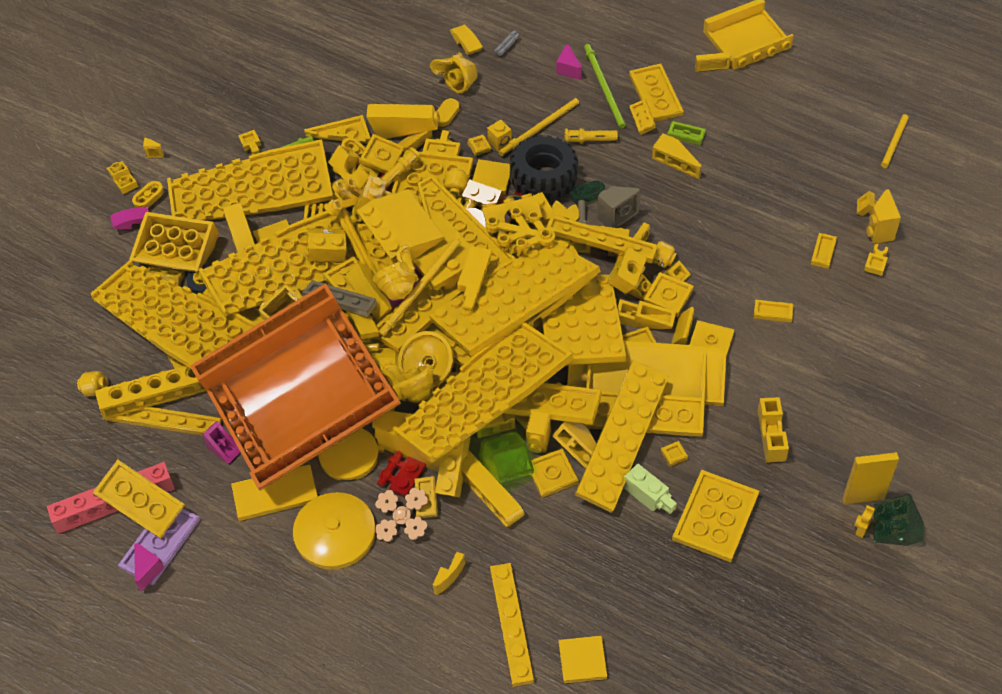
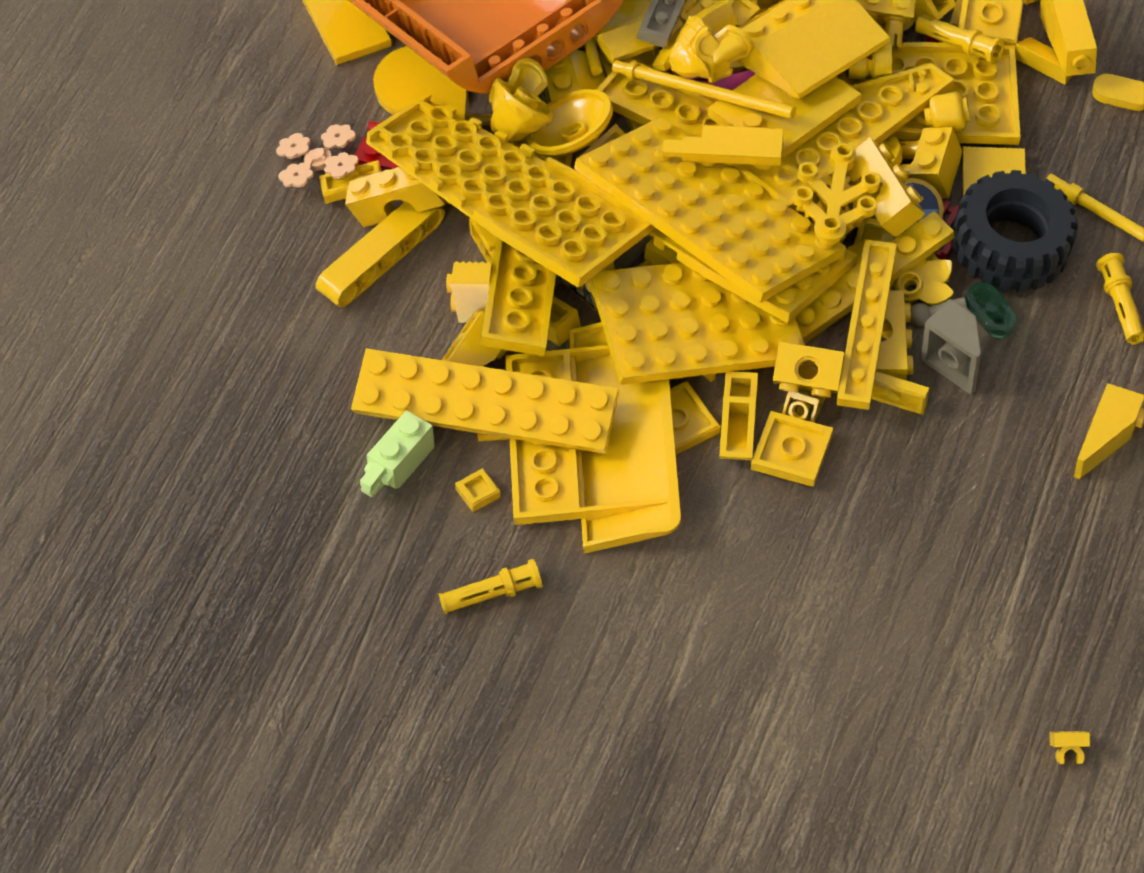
camera: 80 degrees right, 0 degrees up
(334, 531) = (288, 89): yellow dish -> none
(442, 145) = (1039, 97): yellow hinge -> none
(447, 577) = (219, 224): yellow slope -> none
(479, 145) = (1057, 145): yellow tile -> none
(499, 135) = (1082, 165): yellow brick -> none
(506, 457) = (421, 258): clear neon green slope -> none
(511, 625) = (159, 316): yellow plate -> none
(553, 473) = (419, 330): yellow tile -> none
(582, 659) = (109, 408): yellow tile -> none
(665, 255) = (874, 429): yellow head -> none
(678, 271) = (844, 461): yellow slope -> none
(683, 327) = (725, 481): yellow slope -> none
(712, 335) = (709, 522): yellow plate -> none
(715, 516) = (367, 553): yellow plate -> none
(745, 444) = (507, 583): none -> yellow pin
(773, 311) = (793, 610): yellow tile -> none
(773, 438) = (554, 613): yellow arch -> none
(823, 250) = (947, 681): yellow tile -> none
(862, 522) = (374, 757): yellow plate -> none
(870, 478) = (428, 733): yellow tile -> none
(876, 261) = (933, 763): yellow plate -> none
(883, 220) = (1028, 758): yellow slope -> none
(898, 522) = (379, 809): clear green slope -> none

